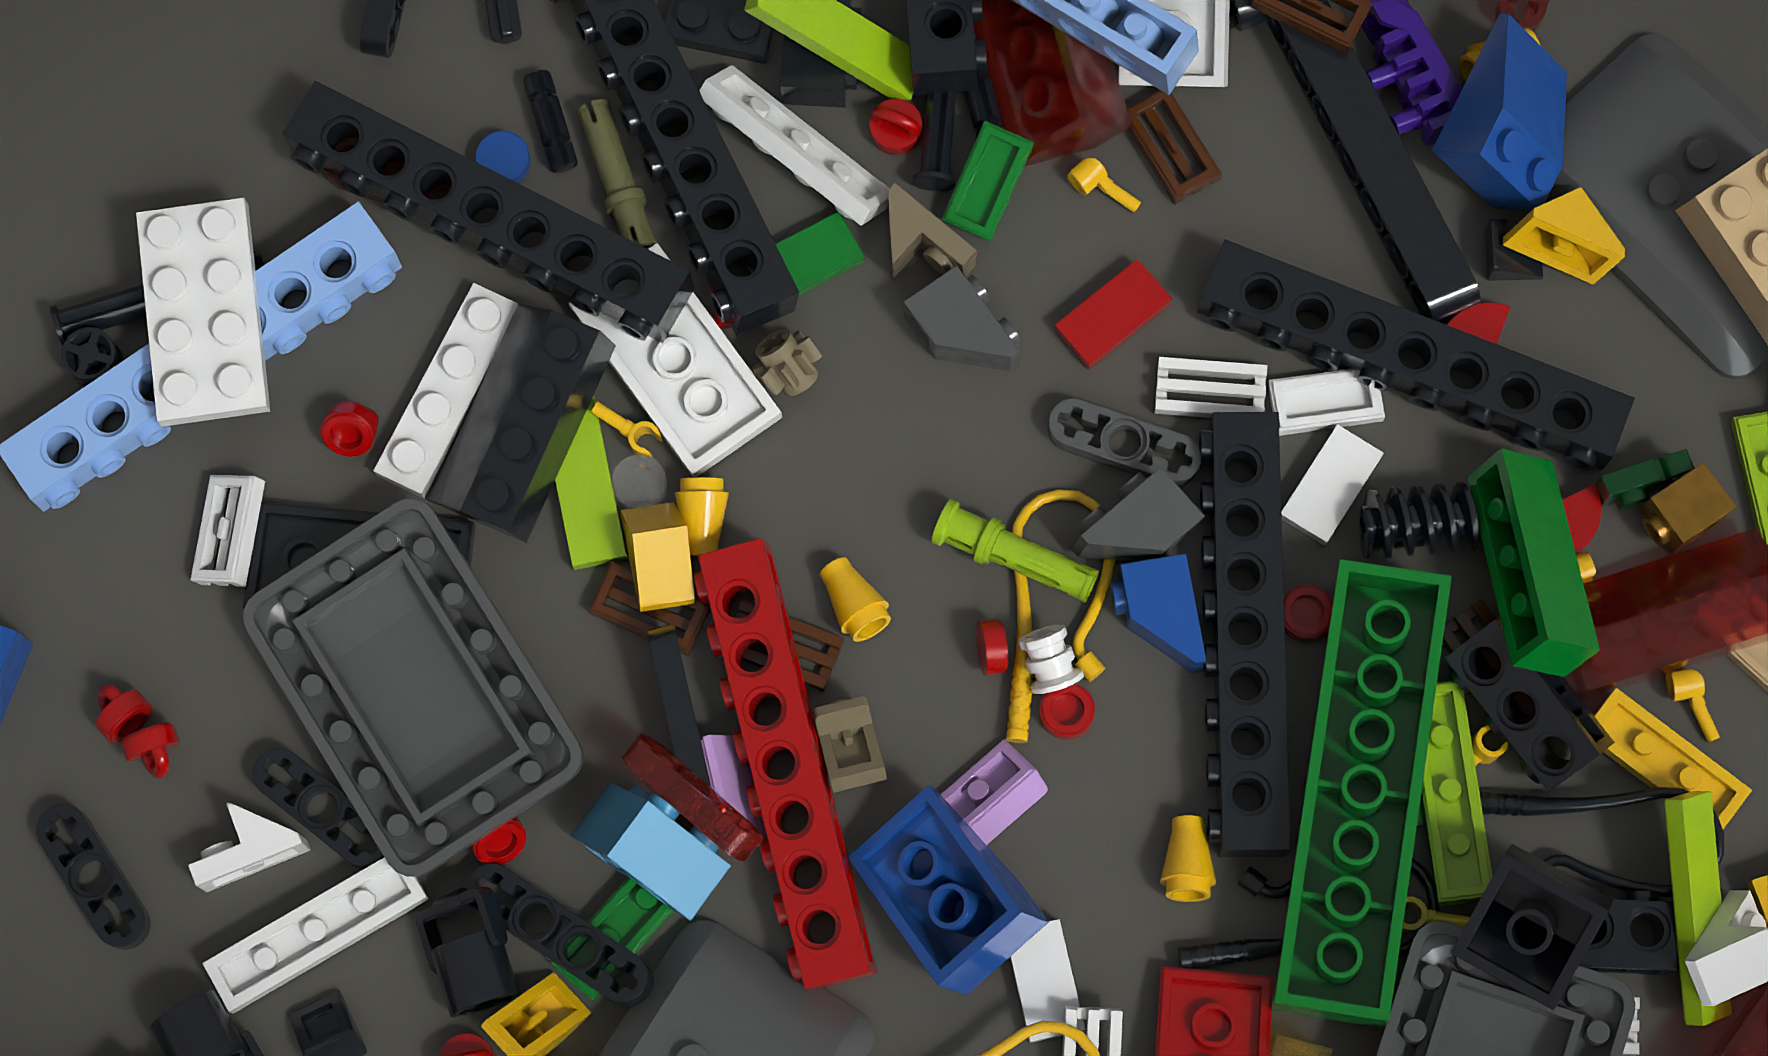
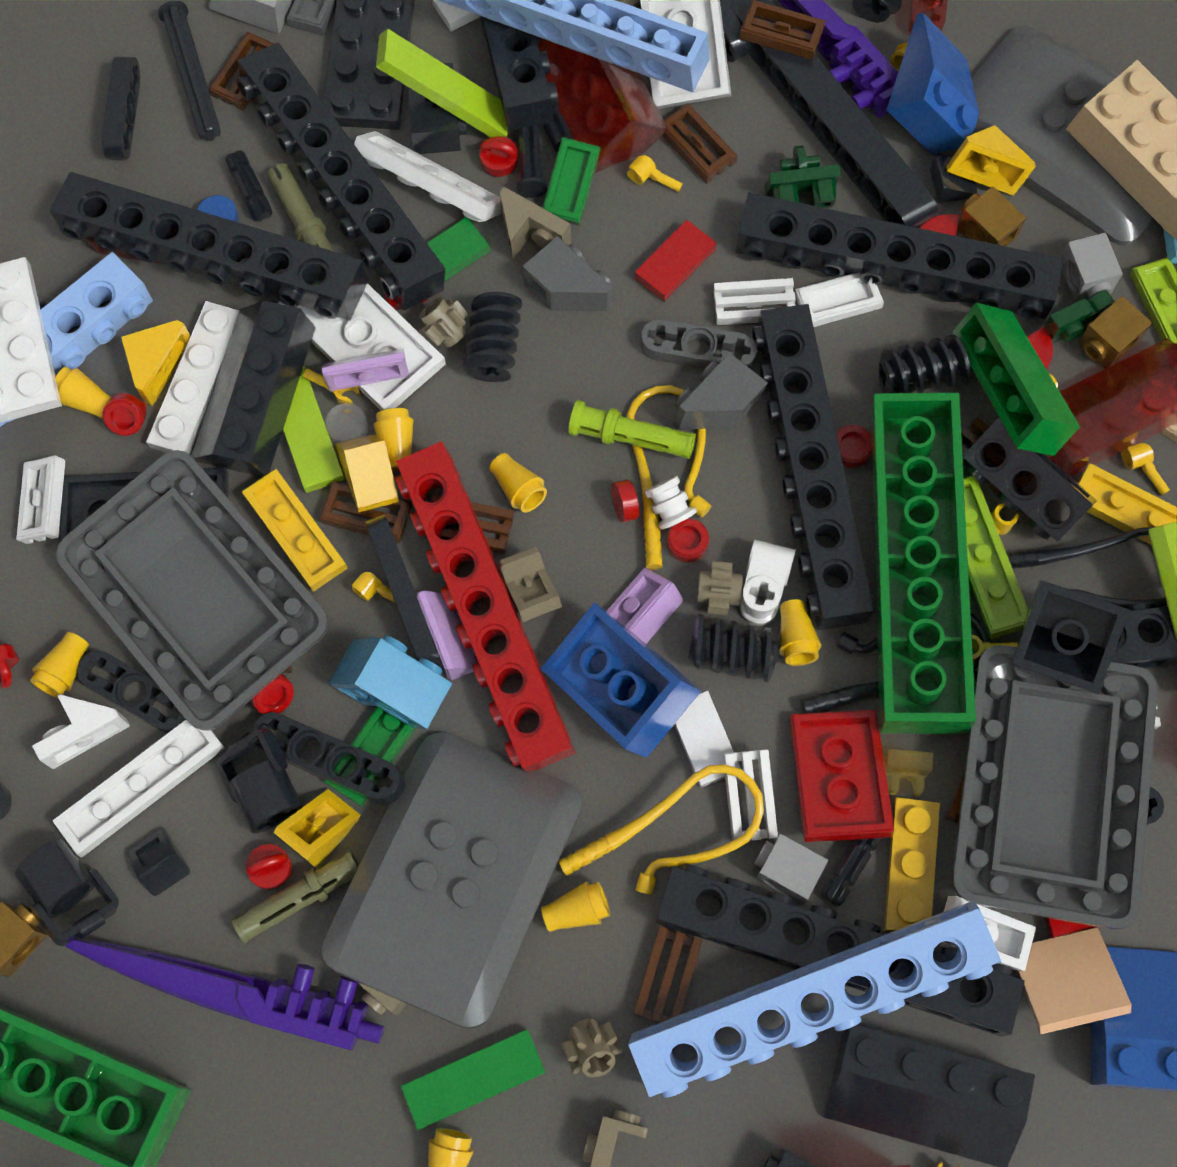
camera: 10 degrees left, 5 degrees down
(230, 761) = (59, 667): none -> yellow cone
(296, 390) = (80, 392): none -> yellow cone
(396, 353) = (155, 356): none -> yellow slope
(553, 621) = (294, 530): none -> yellow plate
(639, 711) = (368, 584): none -> yellow hand
(674, 415) = (365, 370): none -> lavender slope
(692, 797) = (415, 635): clear red beam -> none
(847, 389) = (492, 336): none -> black piece
(1096, 785) = (720, 588): none -> dark tan gear
(1101, 869) = (734, 648): none -> black piece
(1160, 776) = (766, 578): none -> white piece
(1161, 608) = (746, 455): blue slope -> none
(1329, 232) = (804, 174): none -> dark green hips
(1331, 485) = (854, 354): white tile -> none
(1550, 323) = (990, 218): none -> pearl gold brick
(1673, 411) = (1090, 266): none -> light grey brick

